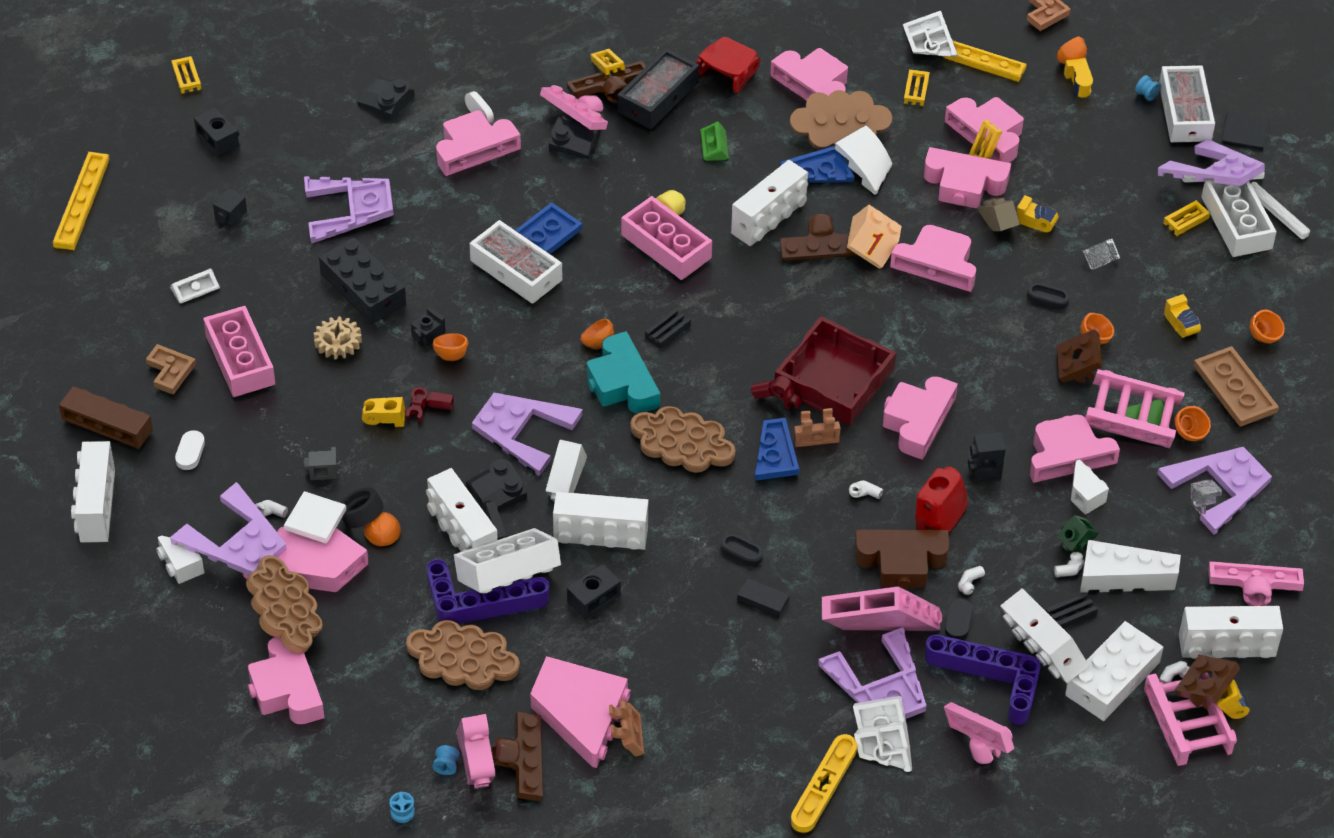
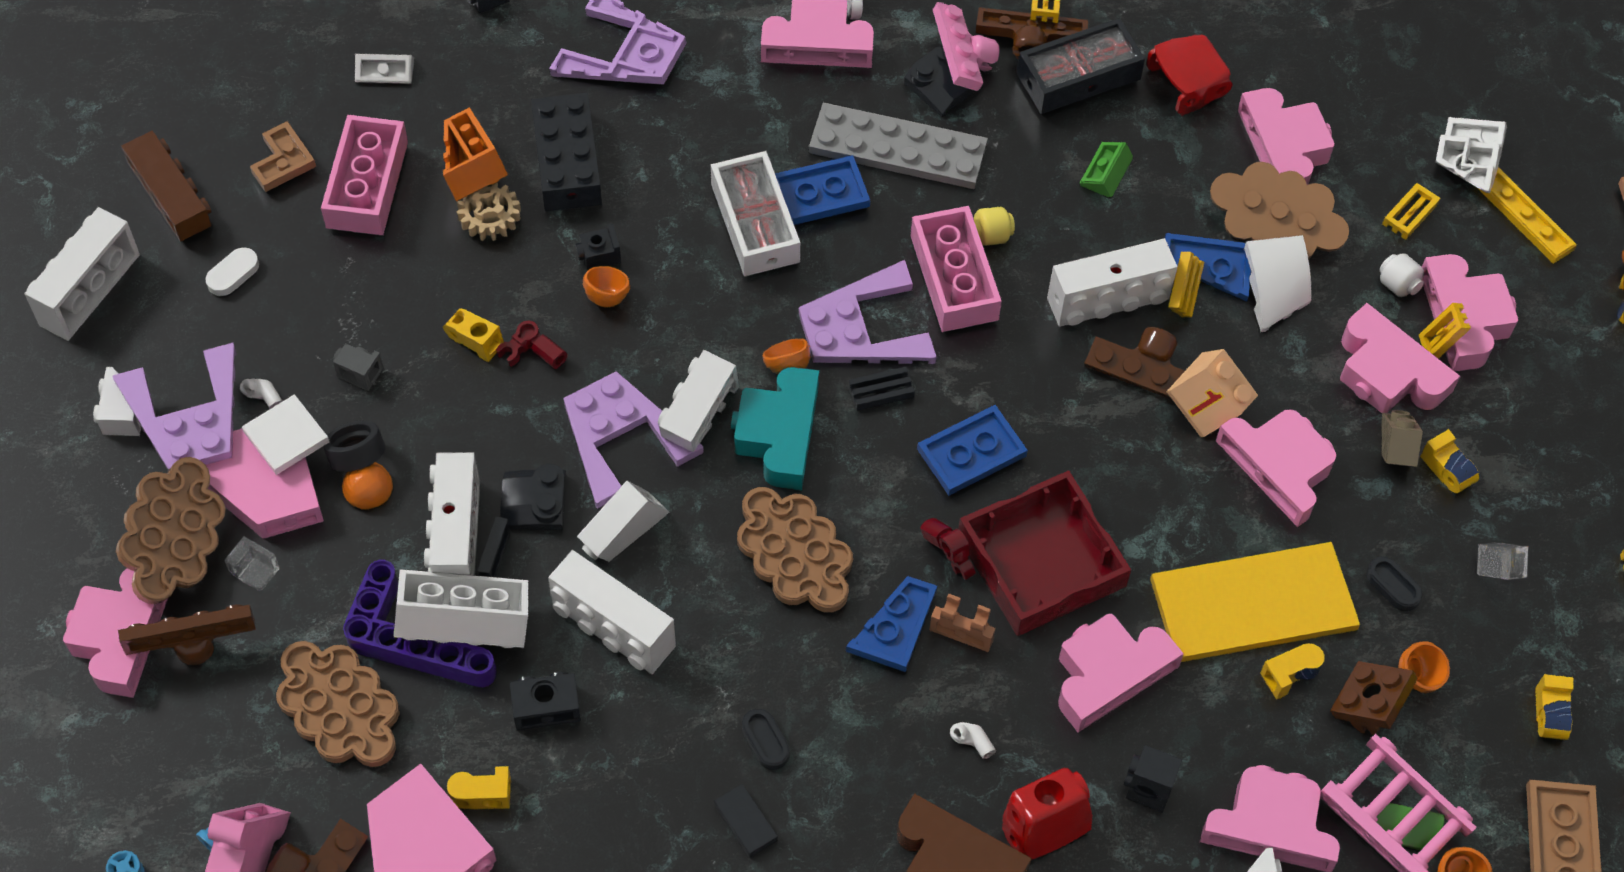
camera: 30 degrees right, 10 degrees up
(305, 305) = (469, 156): none -> orange wedge
(341, 658) = (190, 635): none -> reddish brown plate
(345, 605) = (252, 563): none -> clear panel
(564, 380) = (698, 400): none -> white wedge
(573, 185) = (898, 145): none -> light grey plate
(595, 655) = (481, 791): none -> yellow leg
(619, 307) = (838, 331): none -> lavender wing
(750, 335) = (972, 449): none -> blue plate
(814, 185) = (1186, 284): none -> yellow tile
(937, 124) = (1402, 275): none -> white head
(976, 340) = (1255, 601): none -> yellow tile
(1021, 365) = (1291, 666): none -> yellow leg

